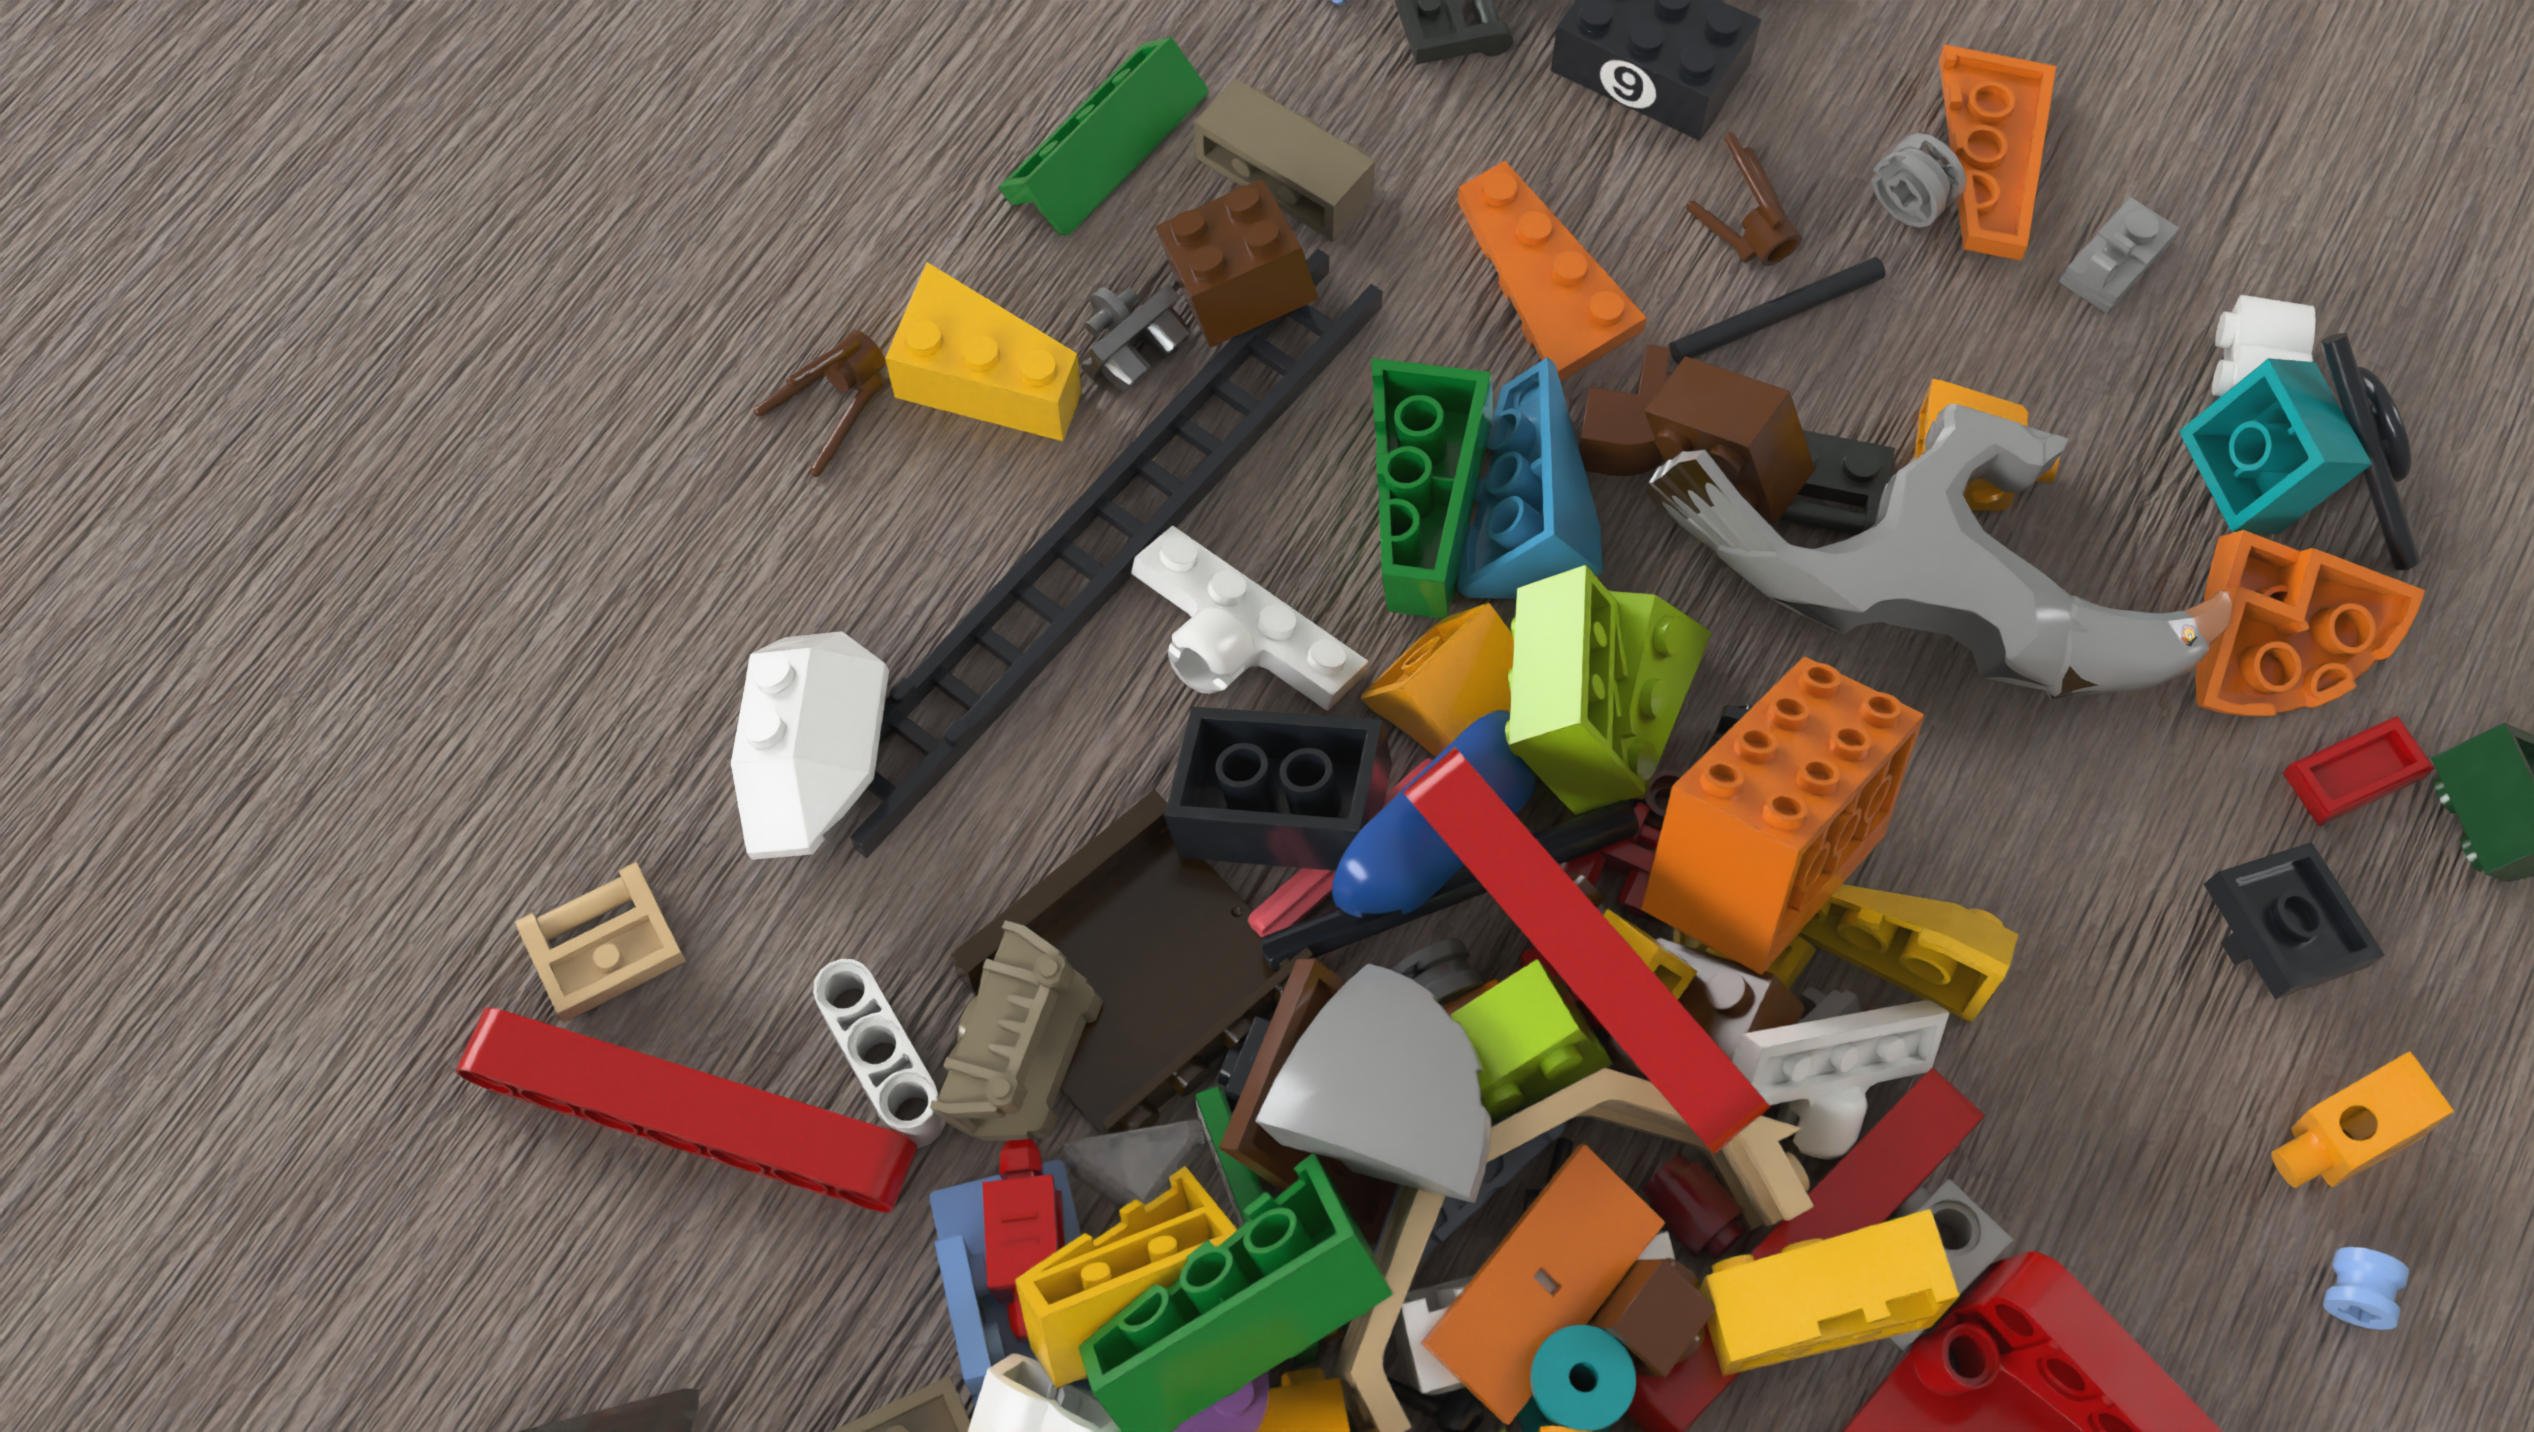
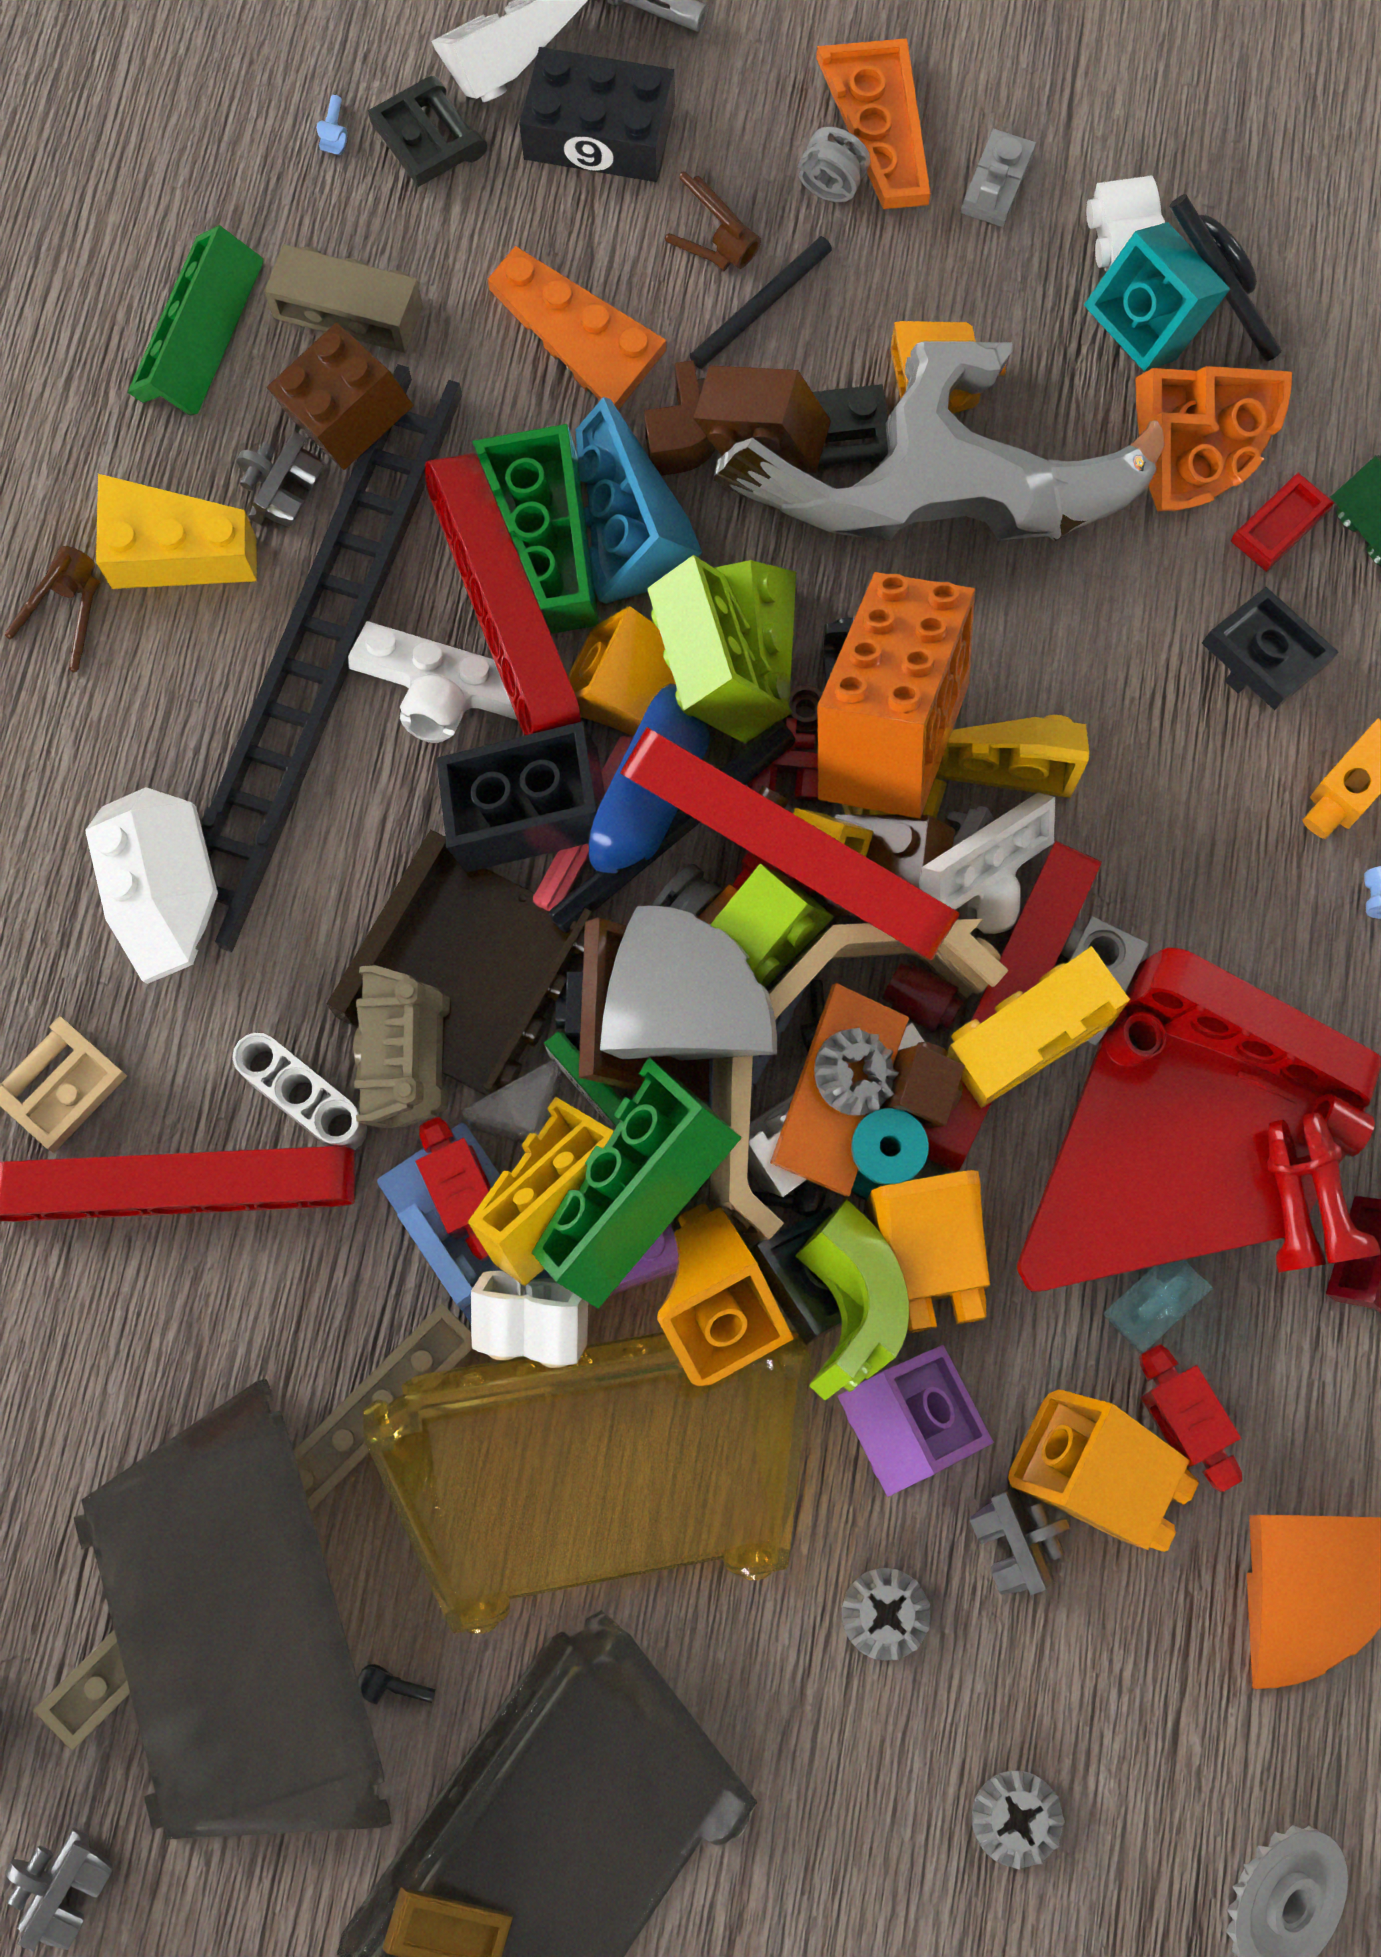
camera: 20 degrees left, 10 degrees up
(1341, 546) = (501, 594): none -> red beam
(1541, 1261) = (834, 1075): none -> light grey gear

